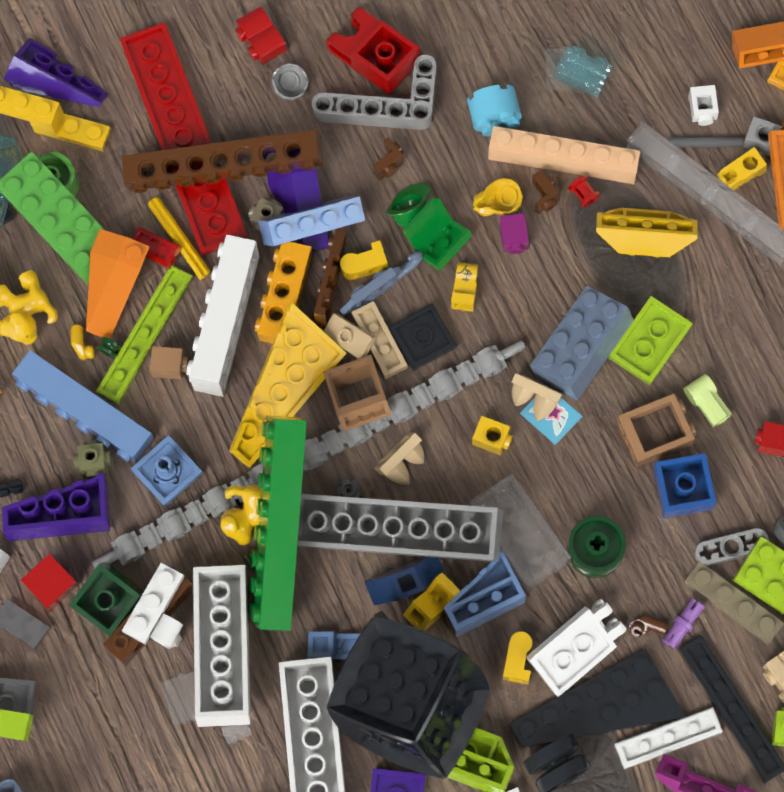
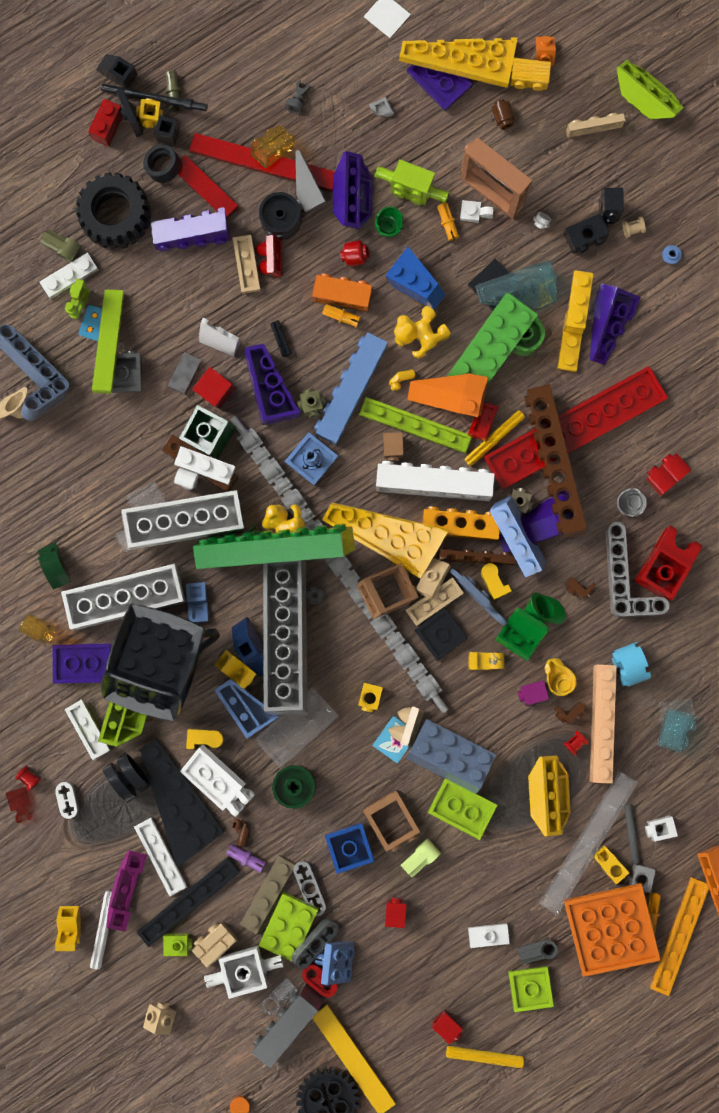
camera: 80 degrees right, 10 degrees up
(108, 347) = (400, 400): dark green bush -> none
(392, 464) = (339, 625): tan tile -> none

